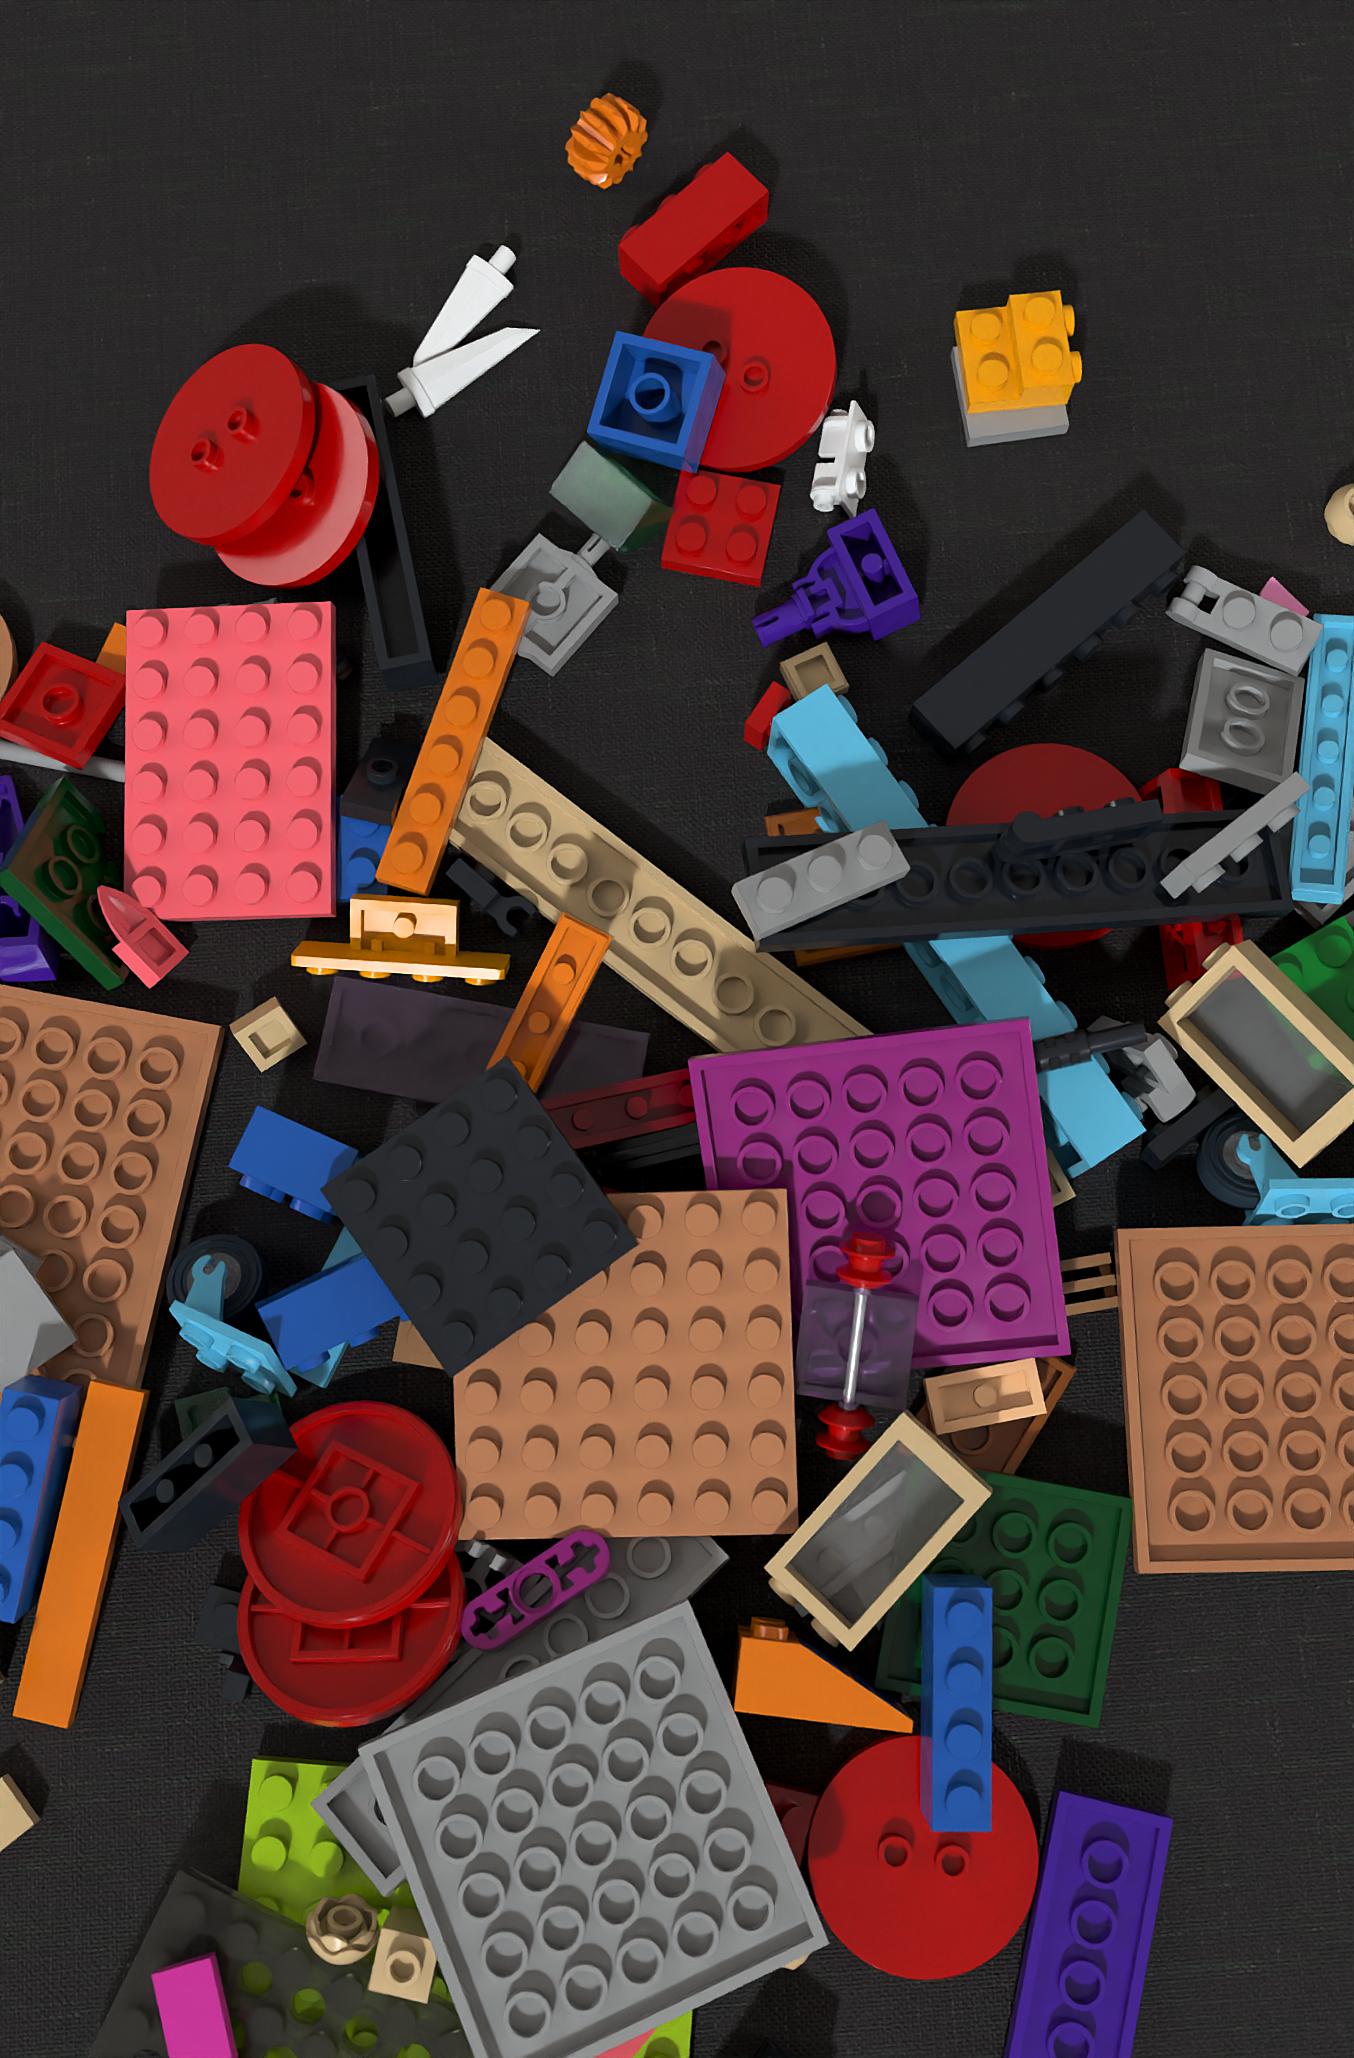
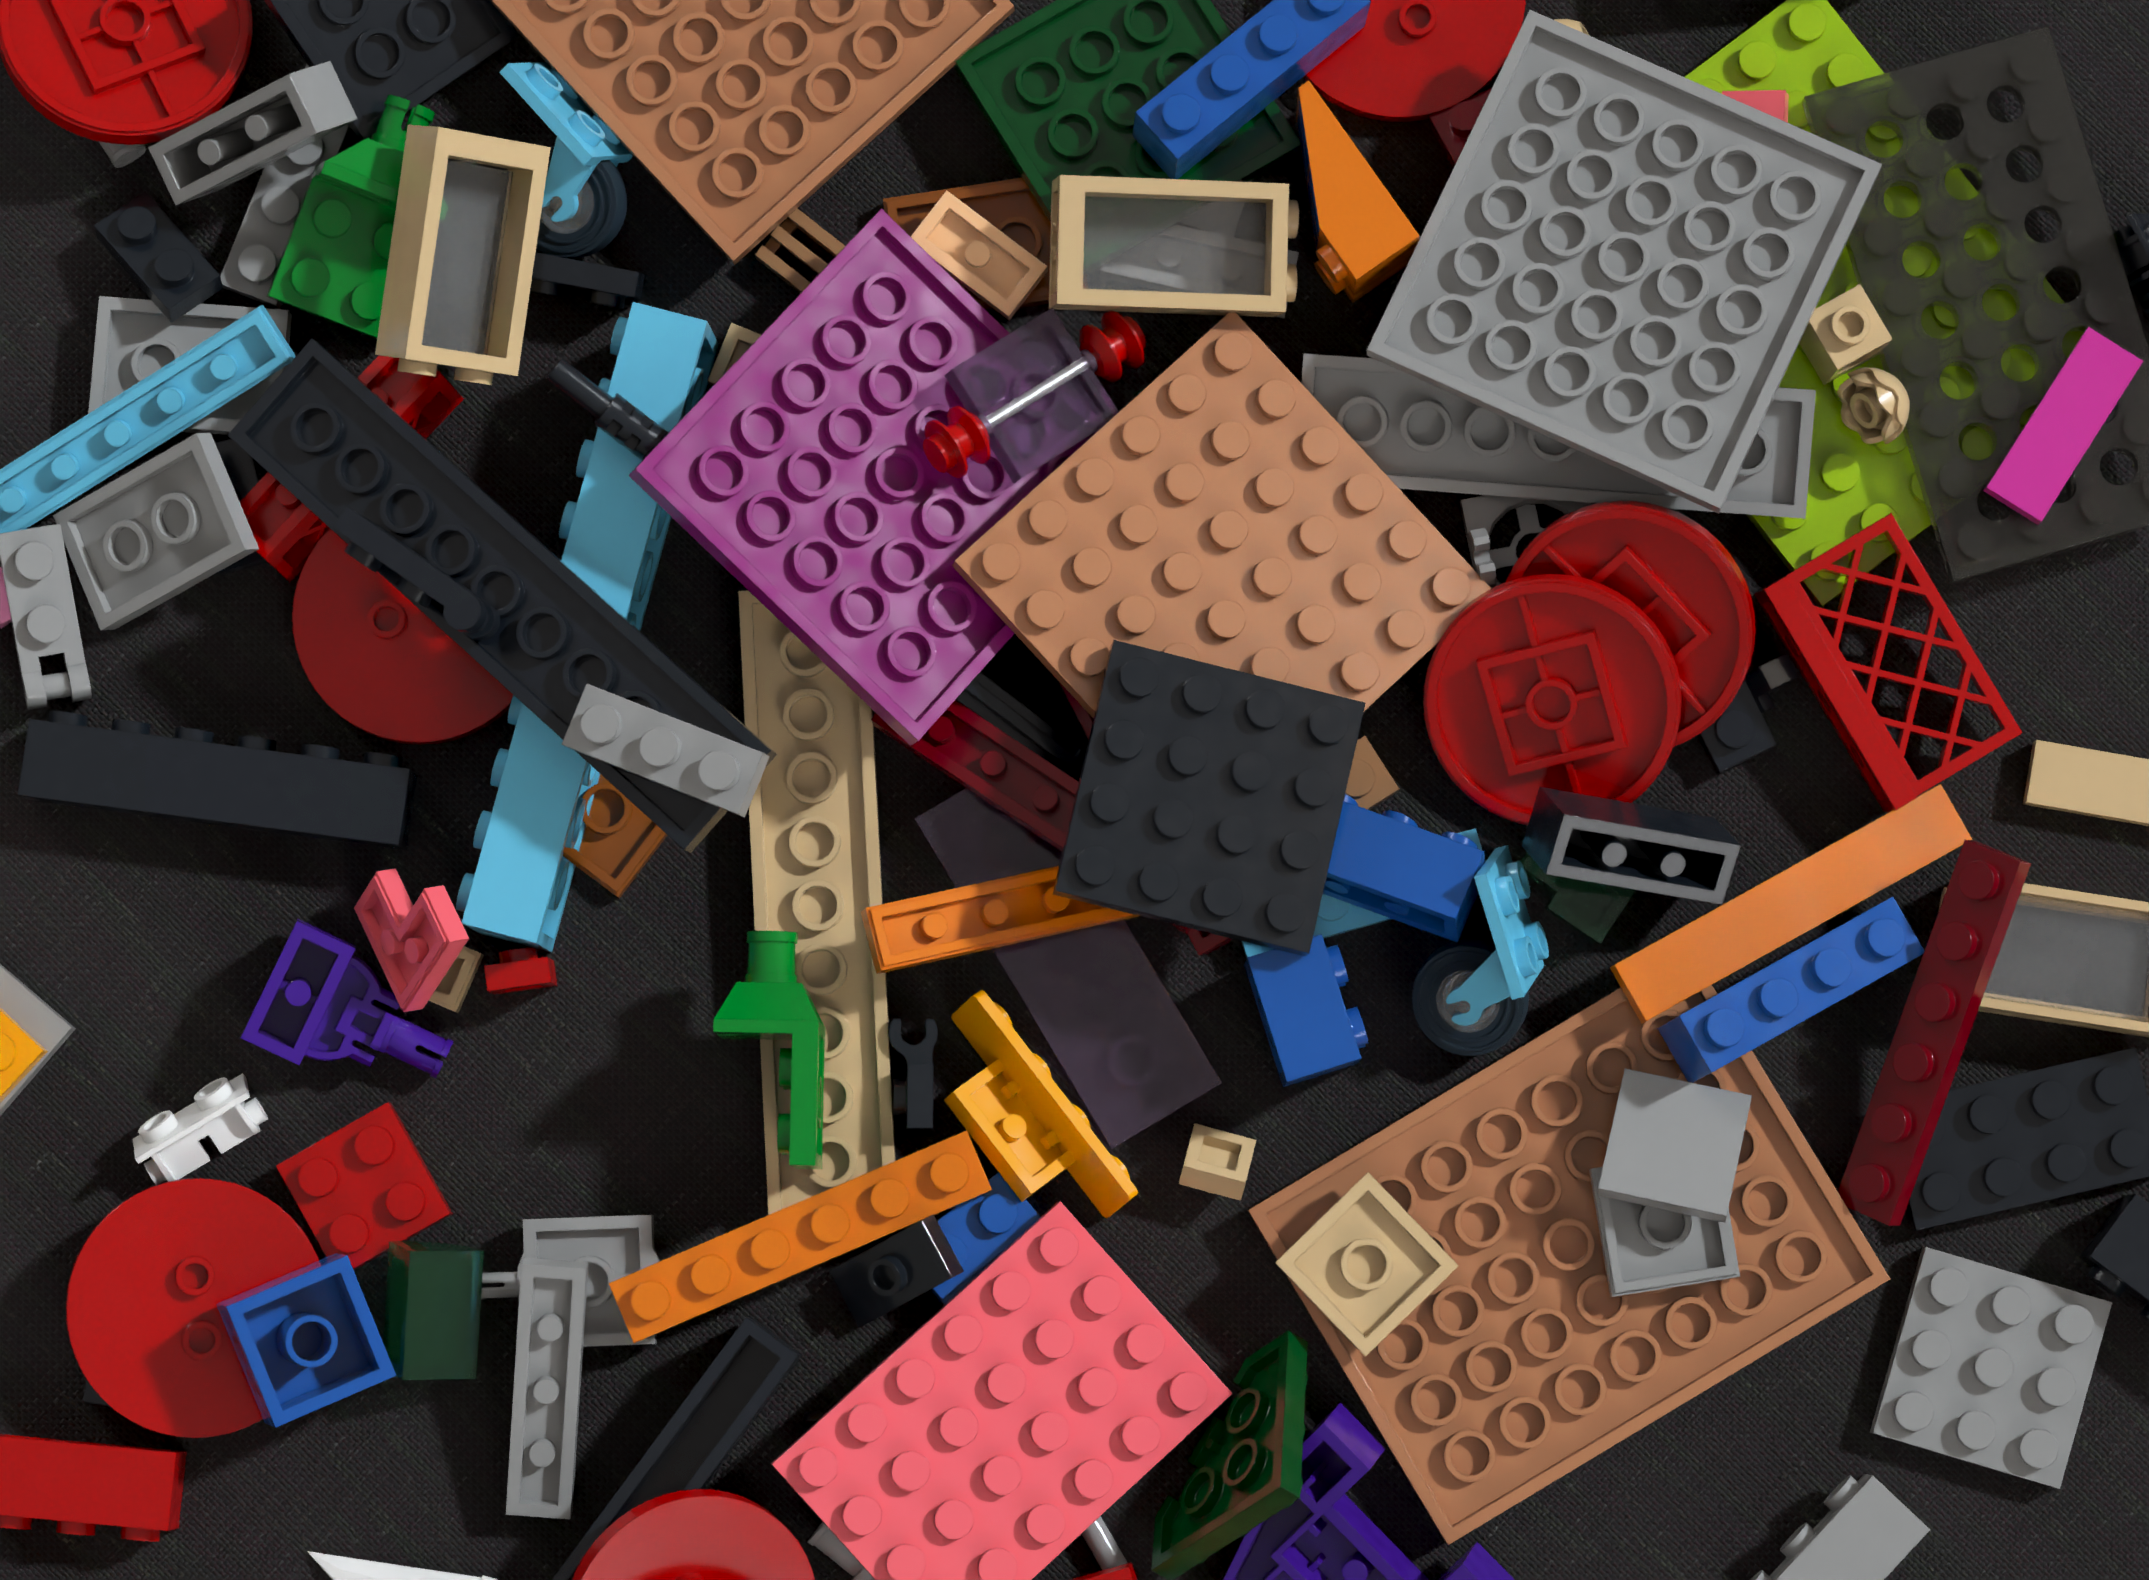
camera: 130 degrees left, 5 degrees up
(113, 1064) = (1366, 1264): none -> tan plate
(143, 940) = (1234, 1347): coral plate -> none
(172, 1715) = (1841, 694): none -> red fence
(492, 1602) = (1431, 460): magenta beam -> none
(504, 522) = (546, 1388): none -> light grey plate
(594, 834) = (779, 1008): none -> green plate
(849, 663) = (410, 940): none -> coral tile
(1151, 1073) = (568, 335): light grey plate -> none
(1237, 838) = (296, 436): light grey plate -> none

